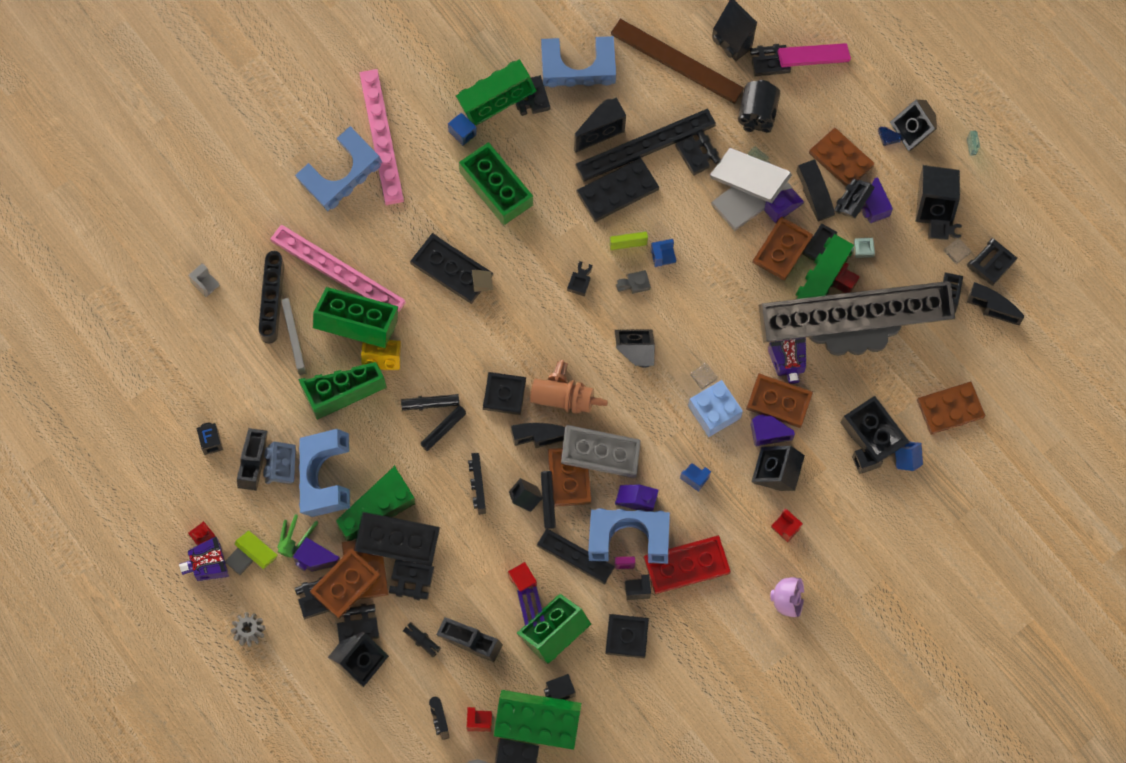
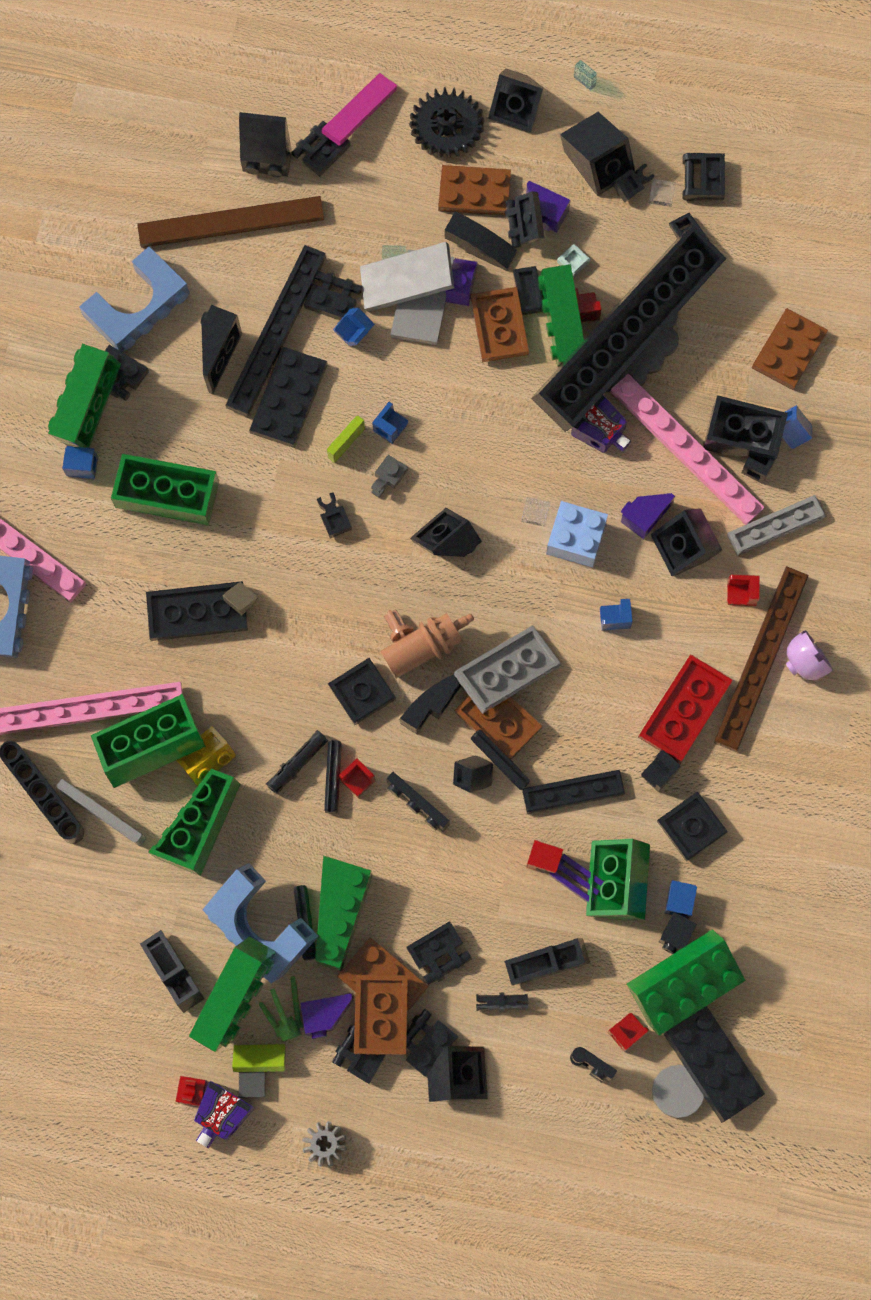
camera: 35 degrees left, 5 degrees up
(209, 438) = (109, 988): black brick -> none
(272, 497) = (232, 994): none -> green brick
(279, 463) = (202, 951): sand blue bracket -> none
(355, 491) = (303, 911): none -> black axle
(397, 538) = (391, 926): black plate -> none
(456, 440) = (357, 777): none -> red panel
(580, 670) = (680, 899): none -> blue panel
(607, 522) = (623, 697): medium blue arch -> none
(625, 562) = (627, 757): magenta tile -> none
(637, 497) = (581, 684): dark purple slope -> none
(692, 179) = (353, 326): none -> blue panel
(759, 106) = (354, 201): black cylinder -> none
(761, 575) = (761, 659): none -> reddish brown tile
(779, 400) = (628, 475): dark orange plate -> none
(829, 415) = (687, 449): none -> bright pink plate
(844, 505) = (776, 525): none -> light grey tile
(856, 94) = (446, 123): none -> black gear
(888, 136) = (499, 133): clear blue tile -> none
(994, 304) = (742, 215): black slope -> none

